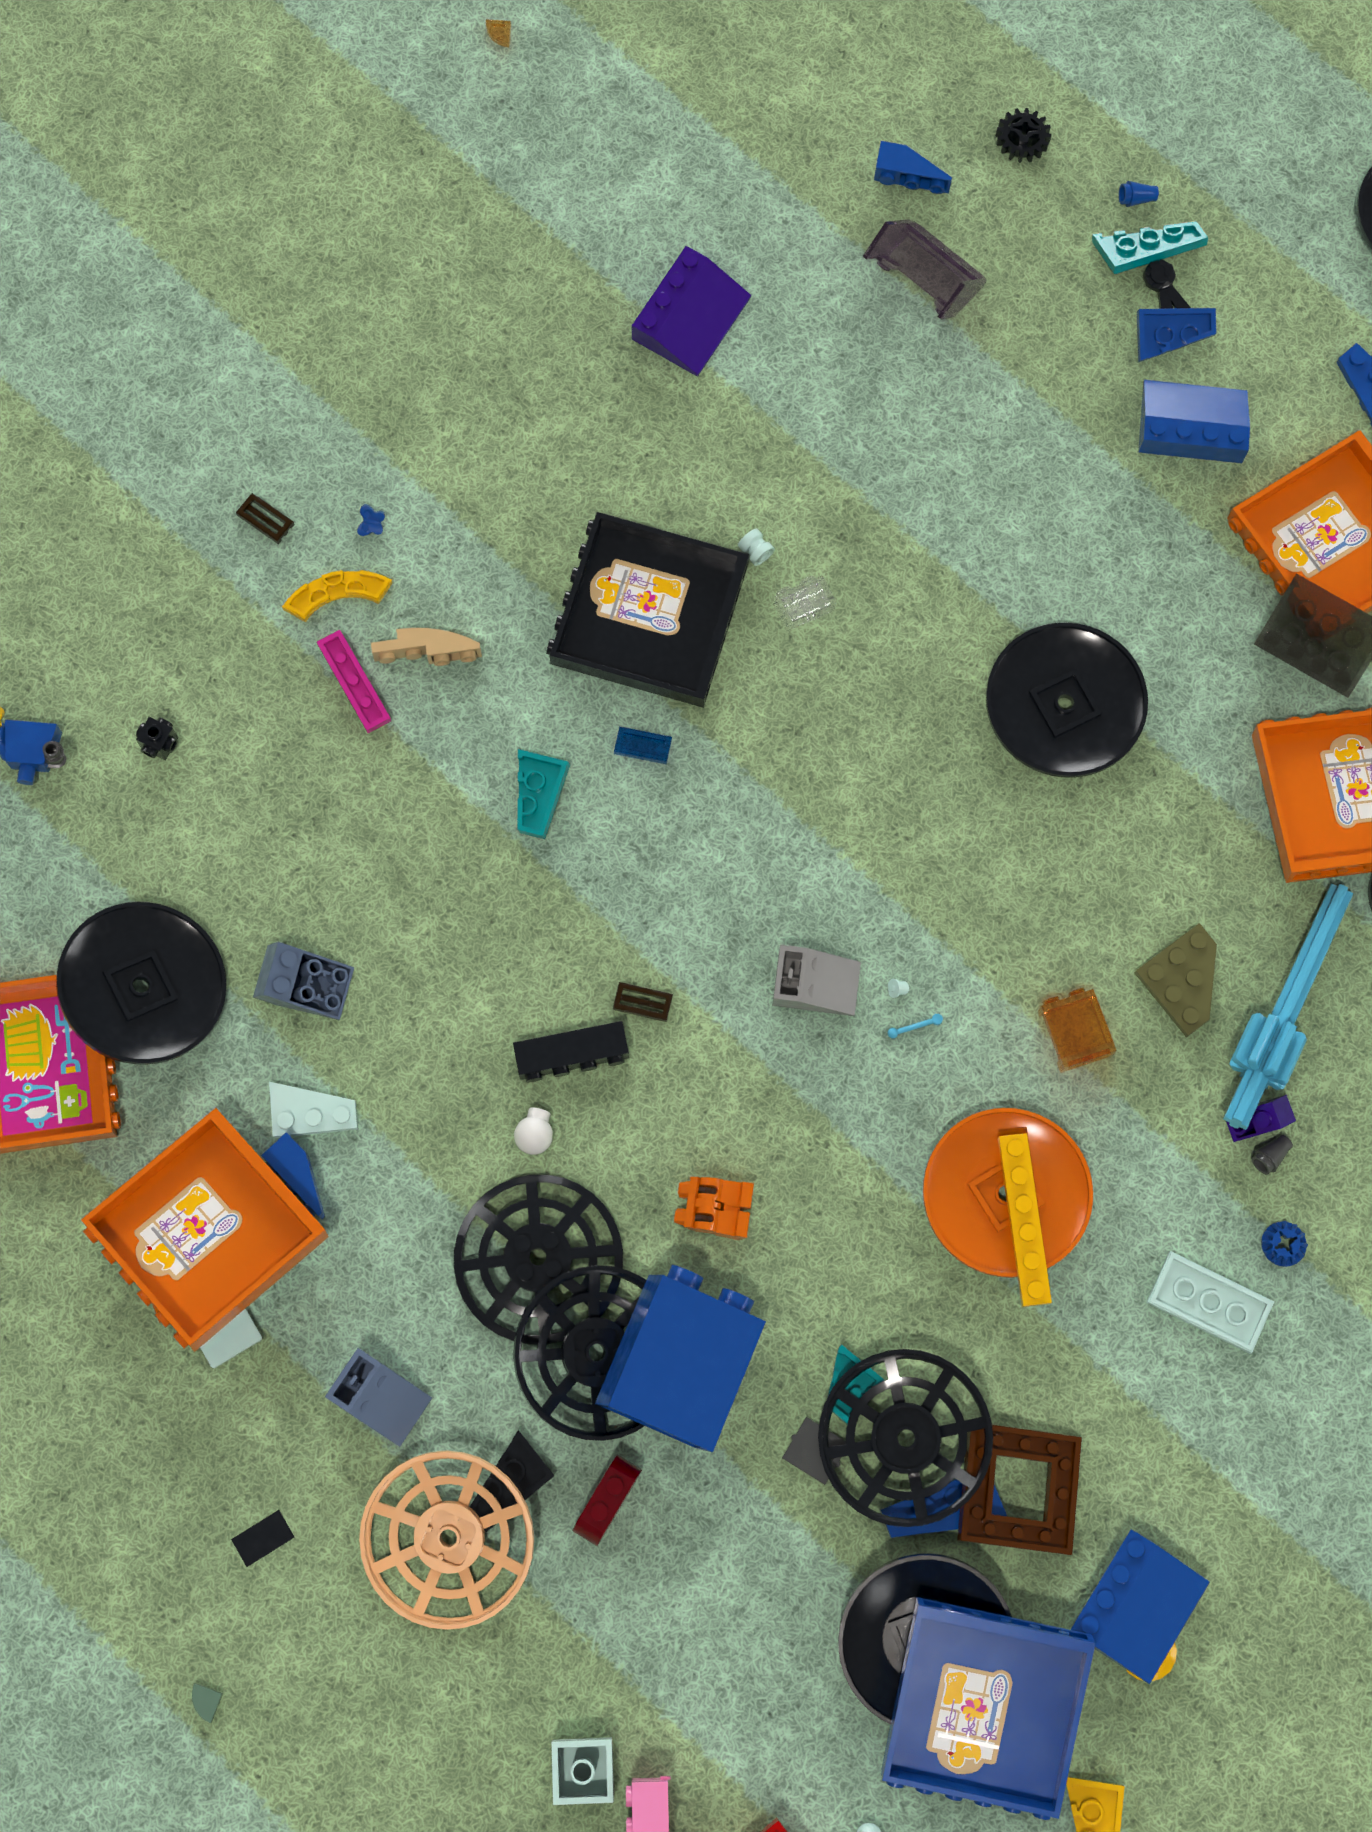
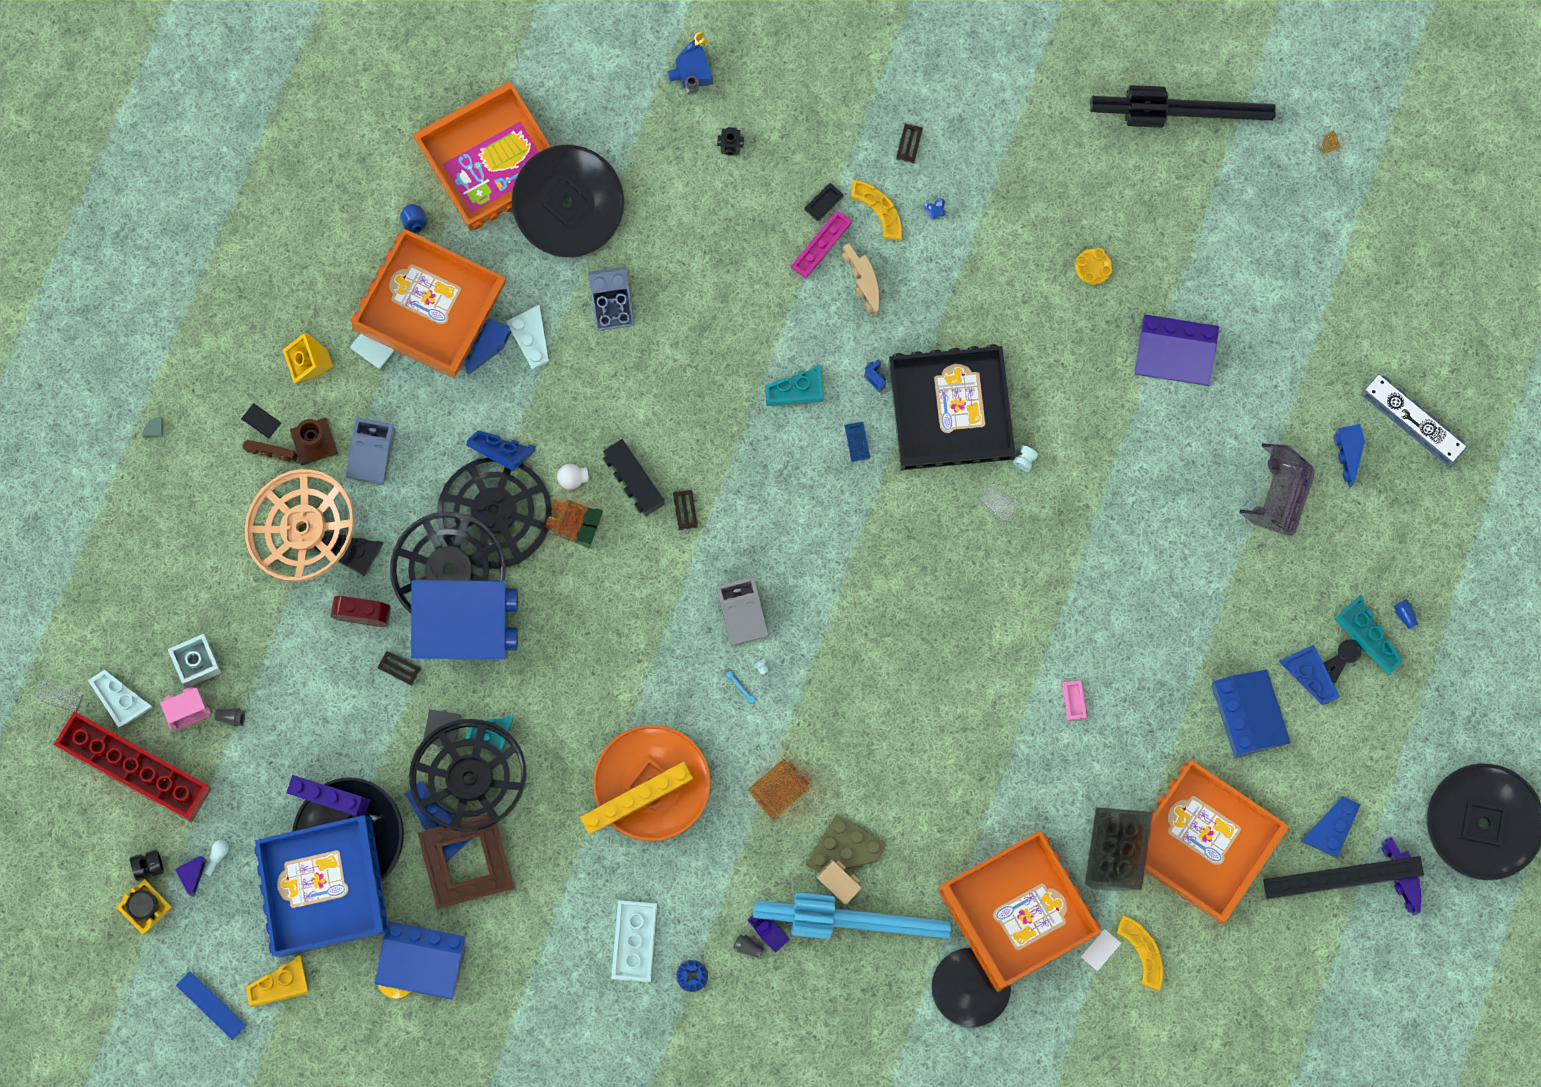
camera: 70 degrees right, 0 degrees up
(65, 1205) = (413, 217): none -> blue head
(202, 1436) = (306, 358): none -> yellow slope
(295, 656) = (824, 202): none -> black tile
(315, 1542) = (268, 450): none -> reddish brown hinge
(341, 1480) = (316, 448): none -> reddish brown plant
(357, 203) = (1150, 107): none -> black axle
(461, 1210) = (503, 452): none -> blue wing
(535, 364) = (1093, 266): none -> yellow dish
(566, 688) = (874, 377): none -> blue bracket
(591, 1157) = (575, 523): none -> clear orange hips
(683, 1748) = (232, 717): none -> dark grey cone
(688, 1493) = (413, 675): none -> dark brown tile
(706, 1198) = (568, 597): orange hips -> none
(864, 1648) = (328, 796): none -> dark purple brick
(898, 83) = (1414, 420): none -> brick
(1023, 135) = (1412, 510): black gear -> none
(1072, 664) = (1010, 672): black dish -> none
(1098, 617) = (1074, 700): none -> bright pink tile
(1230, 1002) = (838, 881): none -> tan brick

